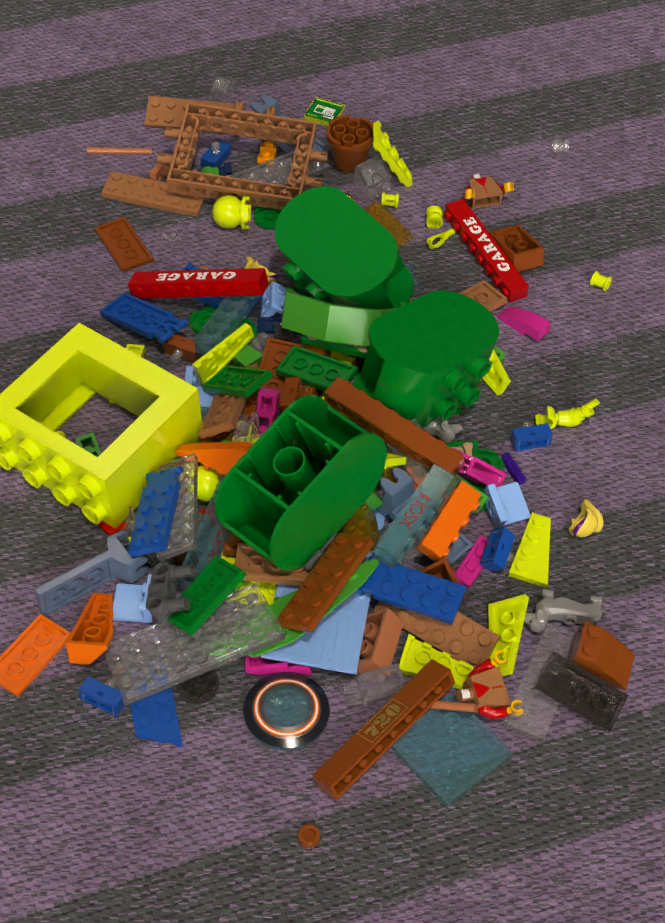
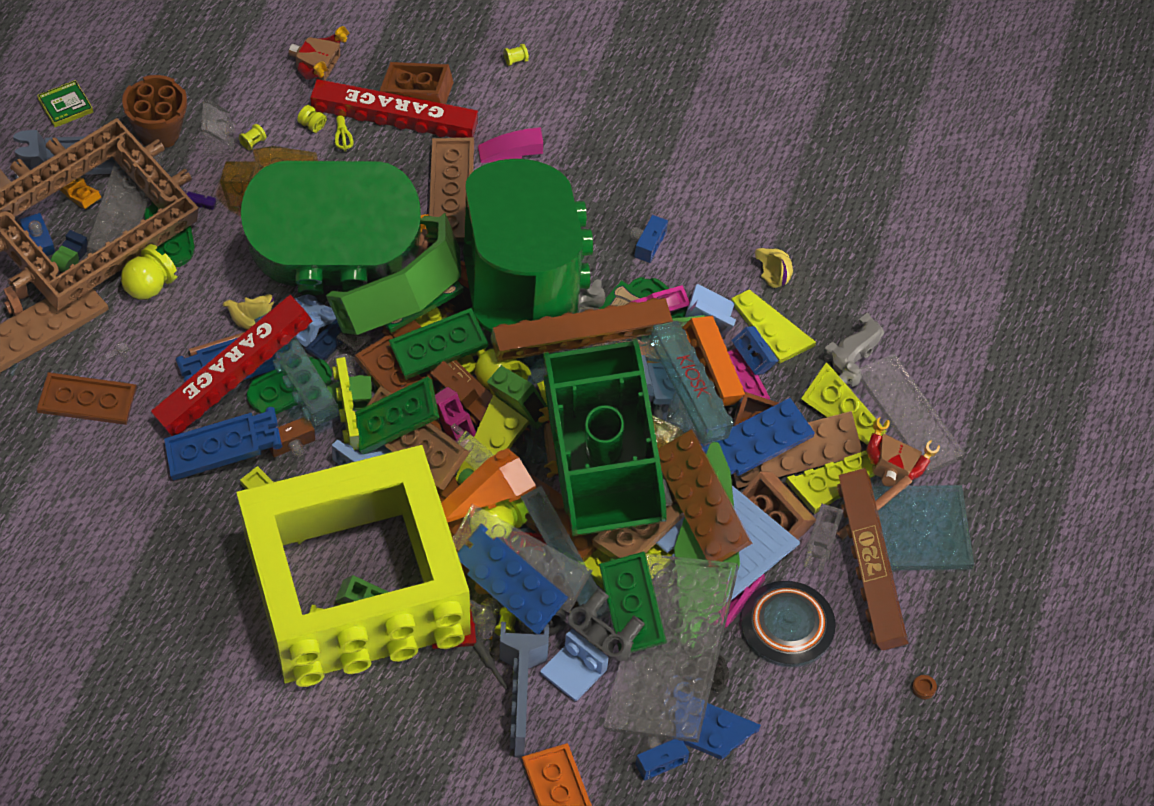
camera: 55 degrees left, 5 degrees up
(92, 631) = (589, 723): orange wedge -> none
(390, 155) = (210, 92): neon yellow wing -> none
(513, 468) = (671, 277): dark purple axle -> none
(567, 417) = (652, 196): neon yellow piece -> none
(581, 691) = (943, 395): clear smoke slope -> none
(602, 655) = (919, 357): dark orange slope -> none

